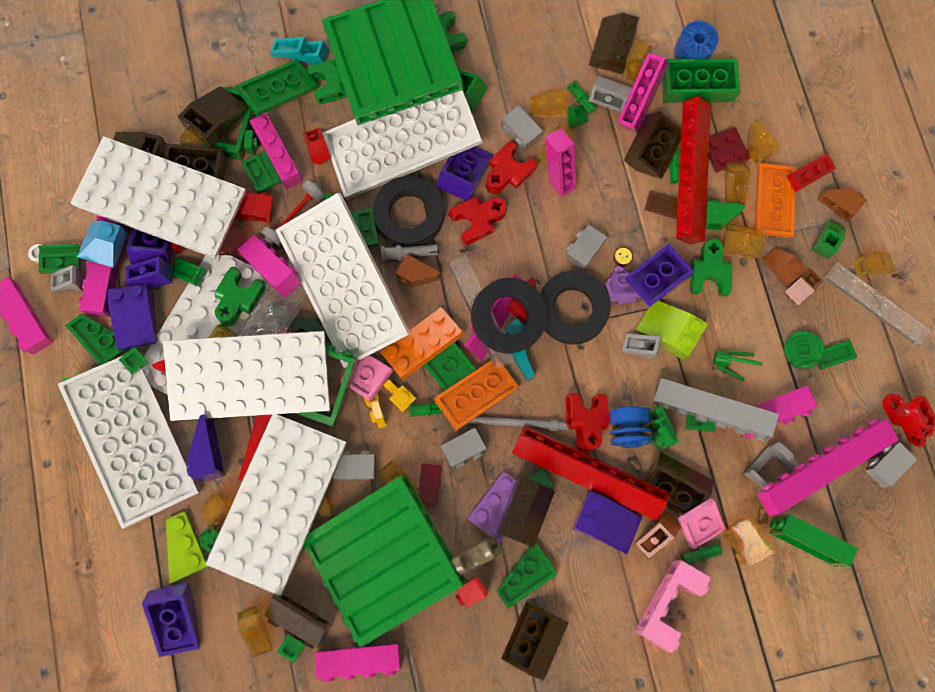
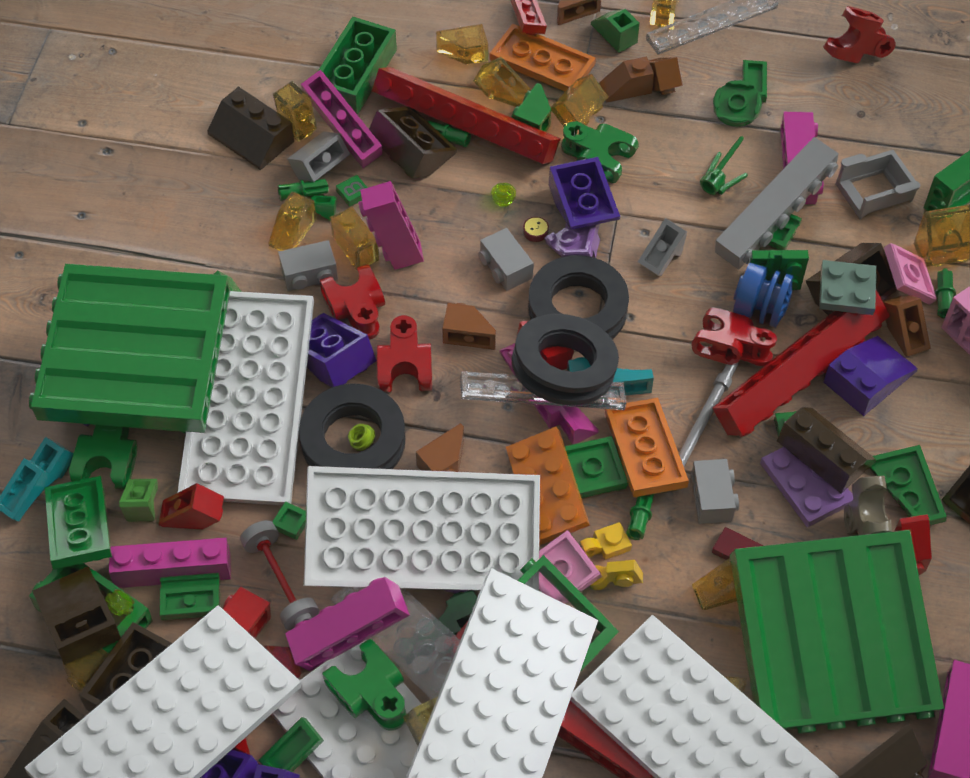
camera: 65 degrees left, 20 degrees down
(231, 135) = (119, 602): none -> clear neon green plate
(251, 142) = (138, 590): green plate -> none
(310, 111) = (138, 500): none -> bright green slope
(356, 466) = (689, 620): light grey brick -> none
(398, 252) = (413, 443): light grey pin -> none
(409, 218) = (361, 436): none -> lime plate
(520, 244) = (467, 327): none -> dark orange slope
(597, 128) = (350, 190): none -> green tile
(639, 228) = (503, 194): none -> clear neon green plate
(657, 482) = (847, 287): none -> sand green plate
(661, 205) = (490, 165): reddish brown tile -> none
(676, 328) = (649, 207): lime slope -> none
(696, 41) = (305, 47): blue wheel -> none
(726, 148) = (454, 76): dark red plate -> none
(826, 467) = (889, 130): dark pink brick -> none
(890, 464) = (904, 80): light grey brick -> none

